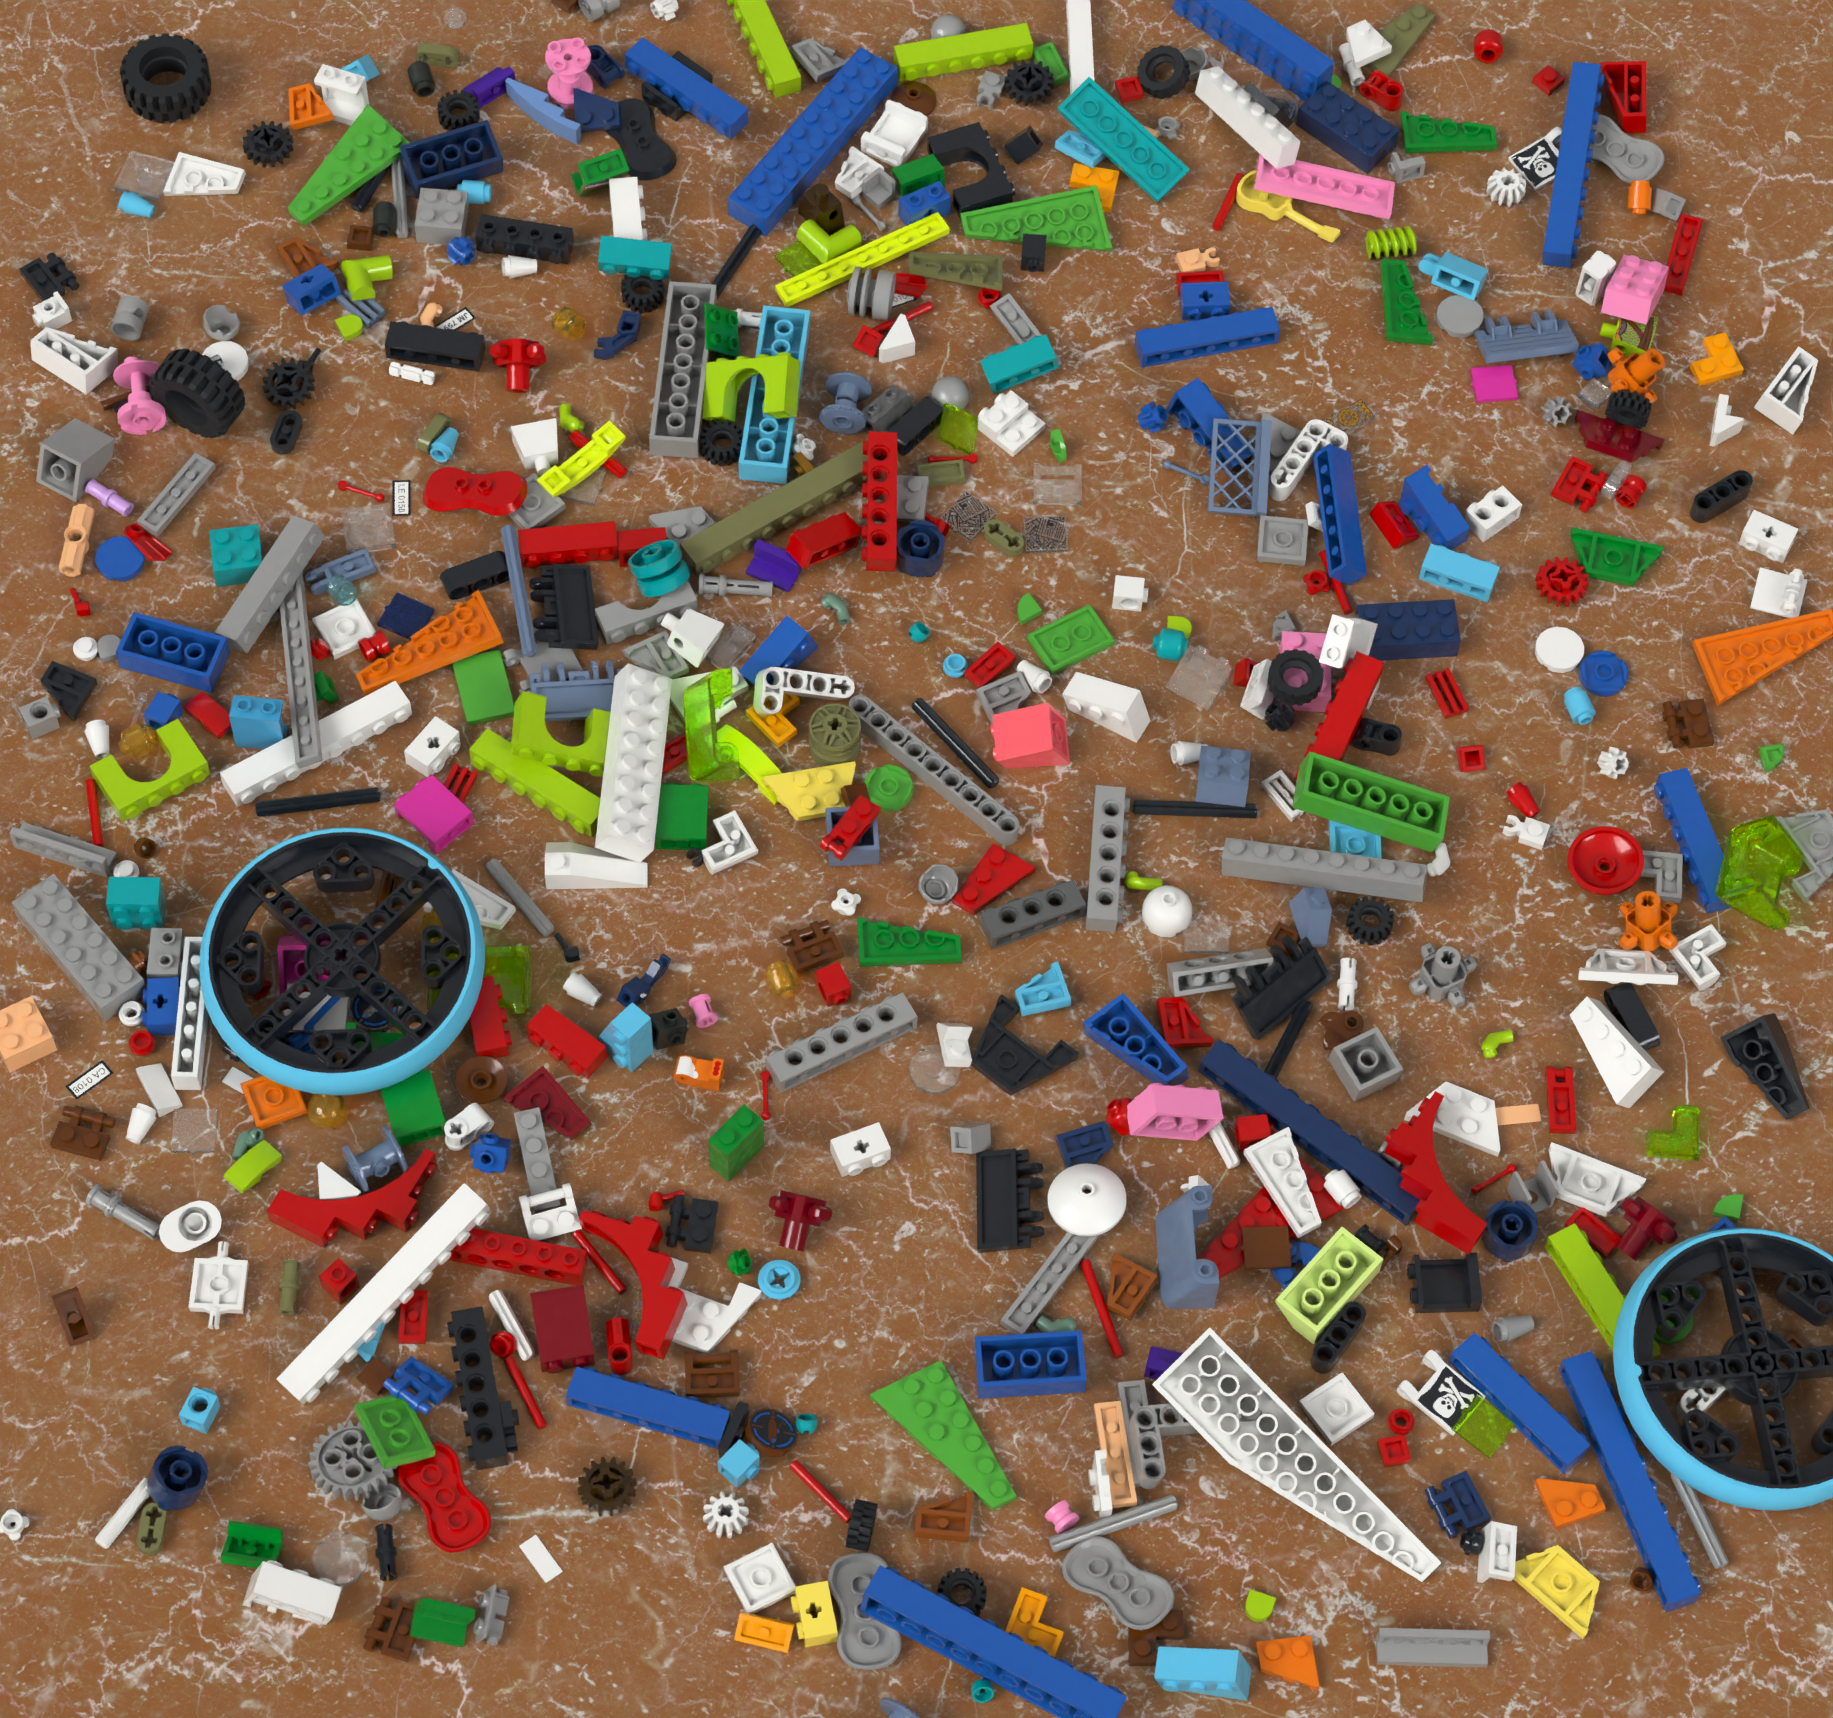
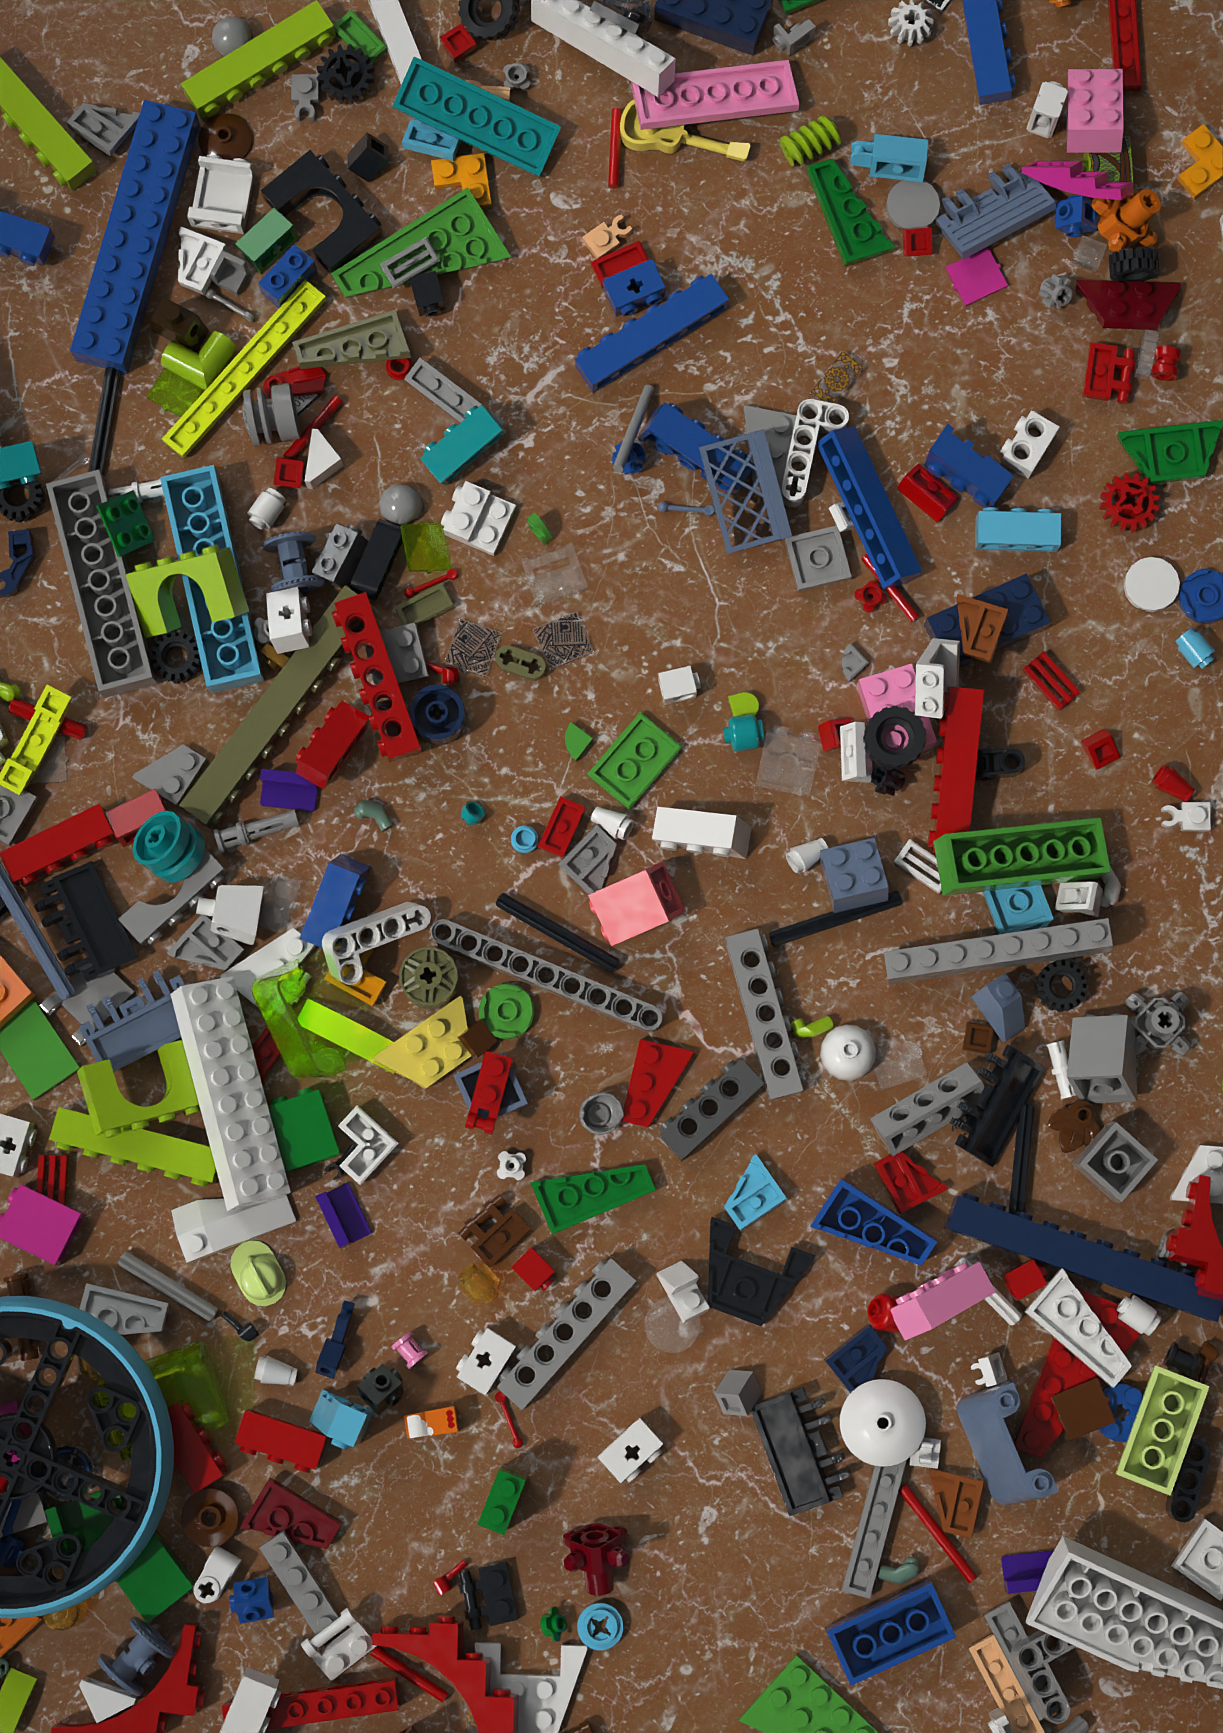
camera: 15 degrees left, 20 degrees up
(599, 915) = (258, 1273): none -> yellowish green piece
(689, 893) = (343, 1215): none -> dark purple panel
(764, 1037) = (500, 1351): none -> white brick
(825, 438) = (288, 620): none -> white brick
(839, 361) = (266, 509): none -> white brick
(1010, 235) = (430, 251): none -> light grey tile
(1115, 1241) = (927, 1454): none -> white tile
(1164, 395) = (633, 428): none -> light grey bar
(1384, 982) = (1103, 1059): none -> light grey slope
(1399, 620) = (980, 627): none -> dark orange wing
(1414, 852) = (1079, 897): none -> white slope
(1453, 340) = (917, 241): none -> red plate
(1601, 331) = (1072, 179): none -> dark pink slope

